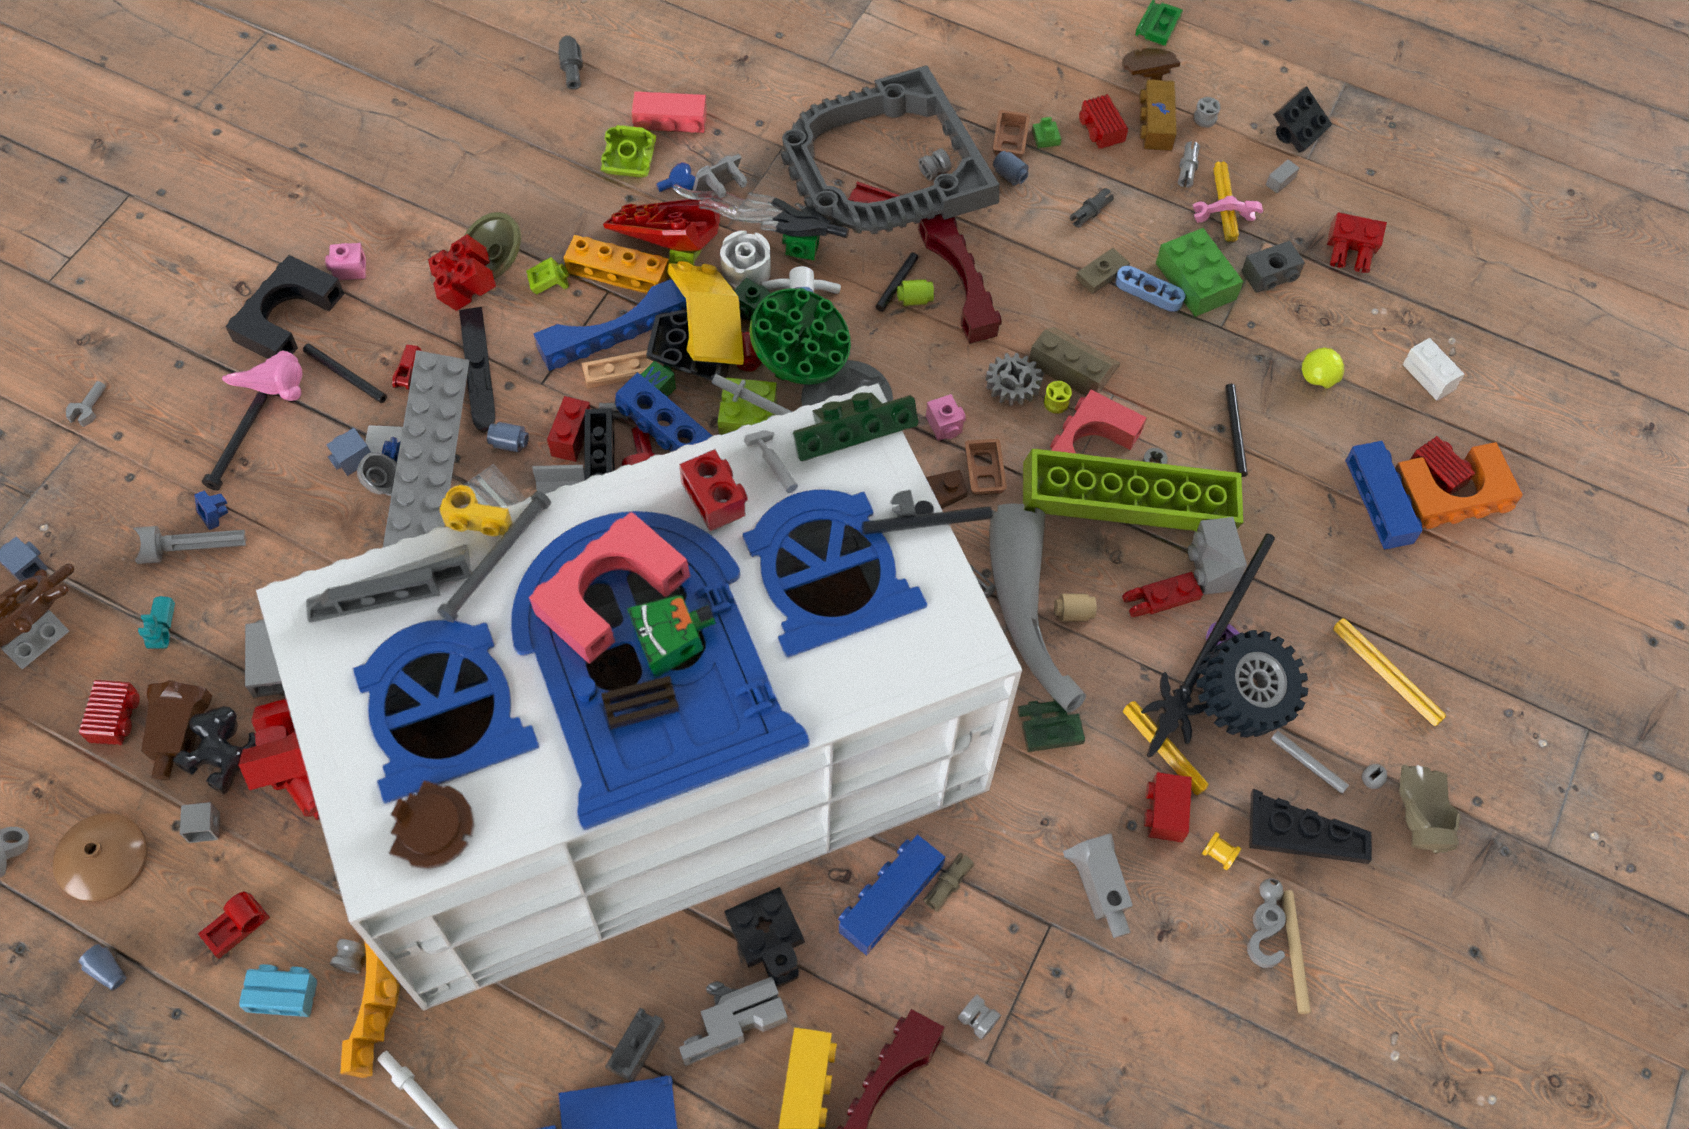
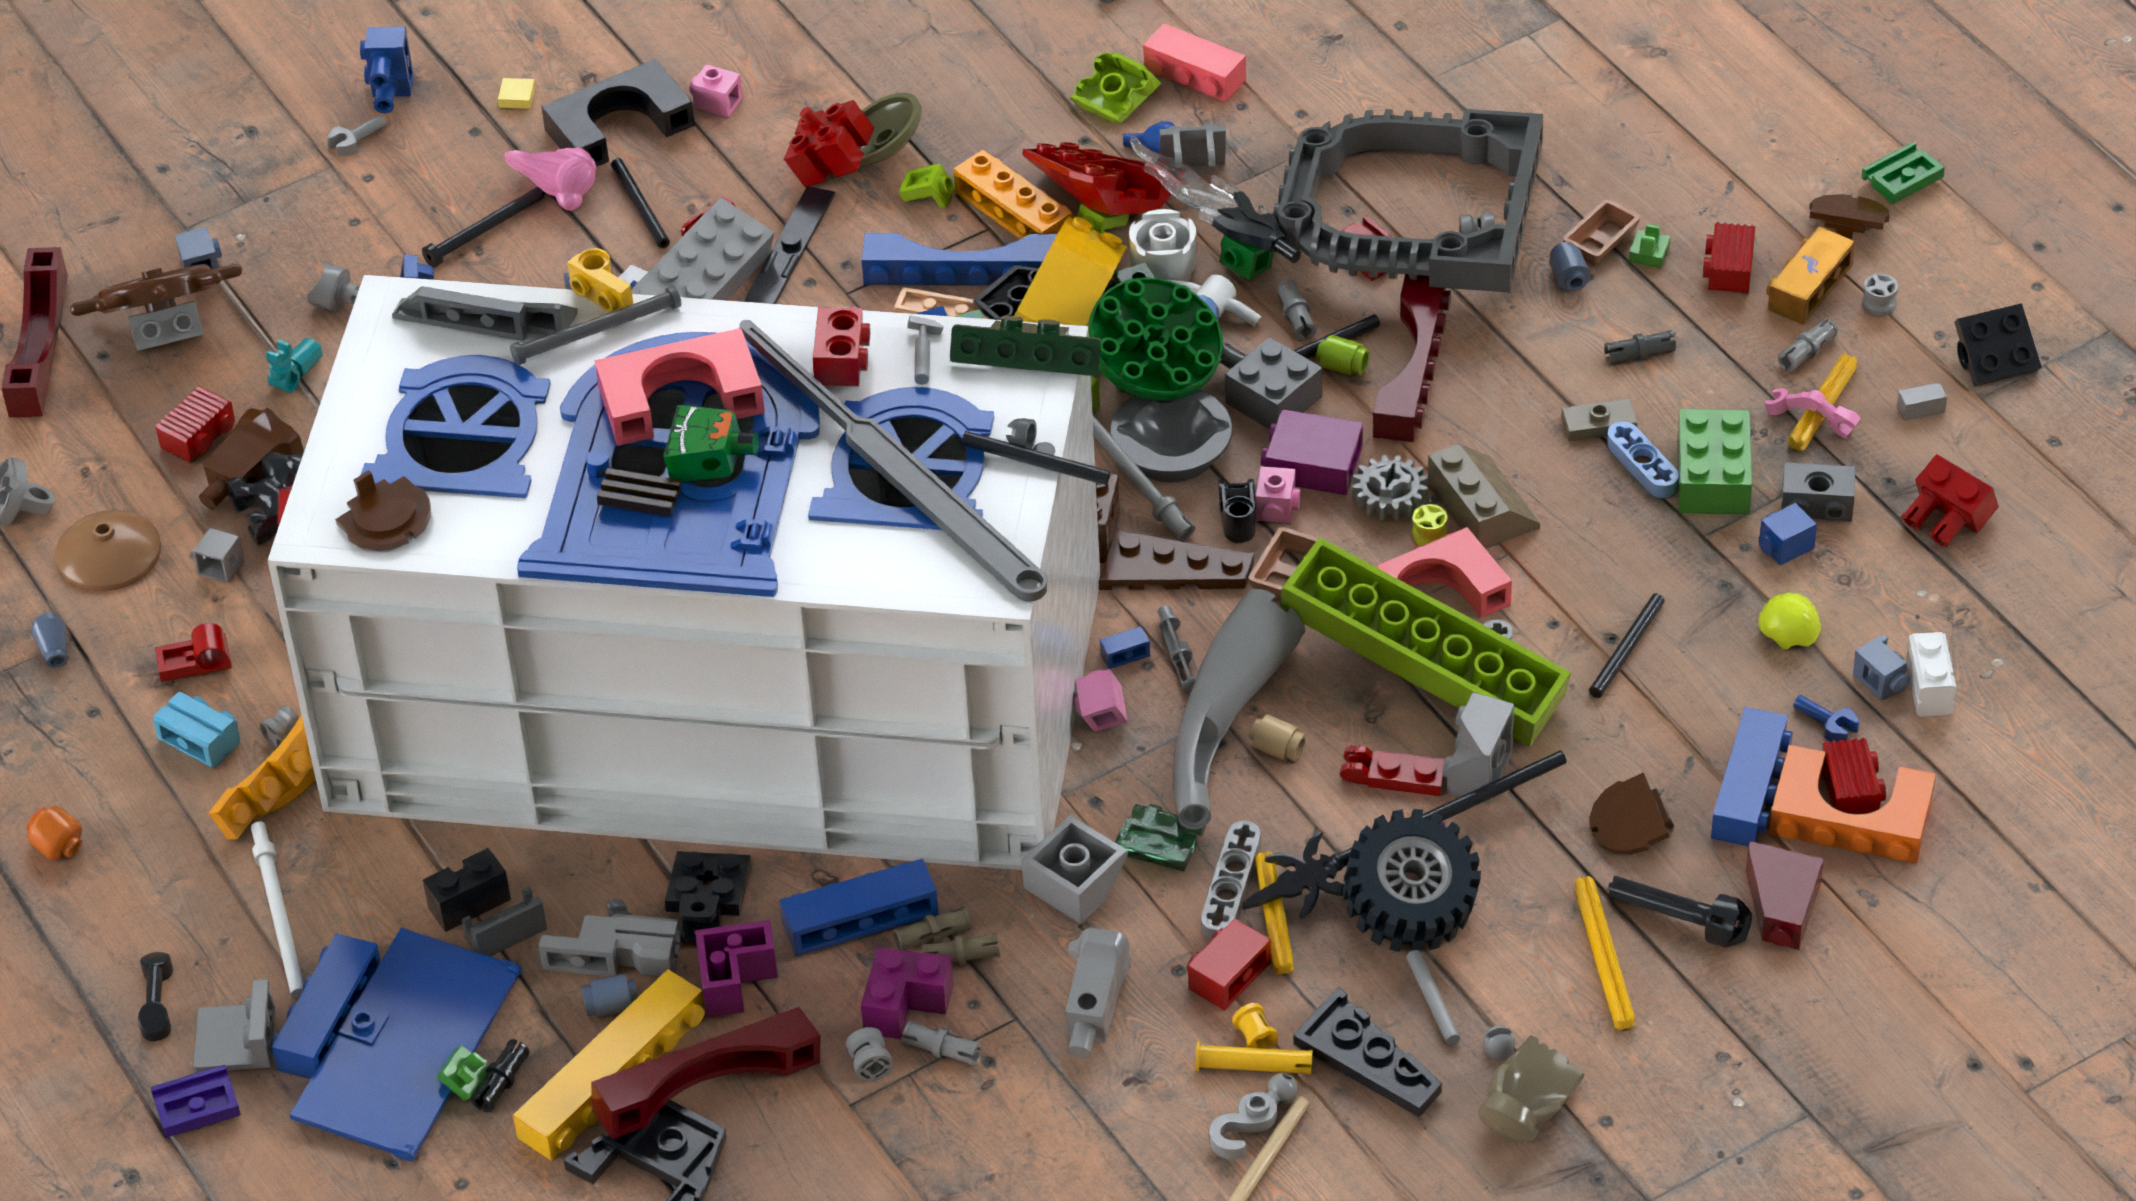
camera: 35 degrees right, 15 degrees down
(81, 339) = (388, 65): none -> blue brick
(193, 320) = (516, 93): none -> light yellow tile
(597, 1022) = (467, 892): none -> black brick
(757, 1068) = (609, 995): none -> sand blue brick
(827, 995) = (732, 957): none -> magenta brick
(844, 582) = (911, 477): none -> piece
(859, 269) = (1296, 309): none -> light grey pin
(885, 333) = (1270, 381): none -> dark grey brick
(925, 437) = (1238, 510): none -> black piece
(946, 371) = (1317, 447): none -> brick
(960, 947) = (904, 983): none -> magenta brick
(981, 890) = (965, 949): none -> dark tan pin
(1020, 977) = (941, 1043): none -> light grey pin
(1022, 785) = (1073, 869): none -> light grey slope
(1121, 735) = (1228, 880): none -> light grey beam
(1234, 876) = (1253, 1059): none -> yellow pin
(1276, 305) = (1787, 534): none -> blue brick
(1334, 560) = (1629, 817): none -> reddish brown piece
(1394, 428) = (1831, 720): none -> blue bar
(1400, 378) = (1880, 668): none -> sand blue brick
(1446, 612) = (1717, 919): none -> black piece
(1464, 573) = (1782, 891): none -> slope

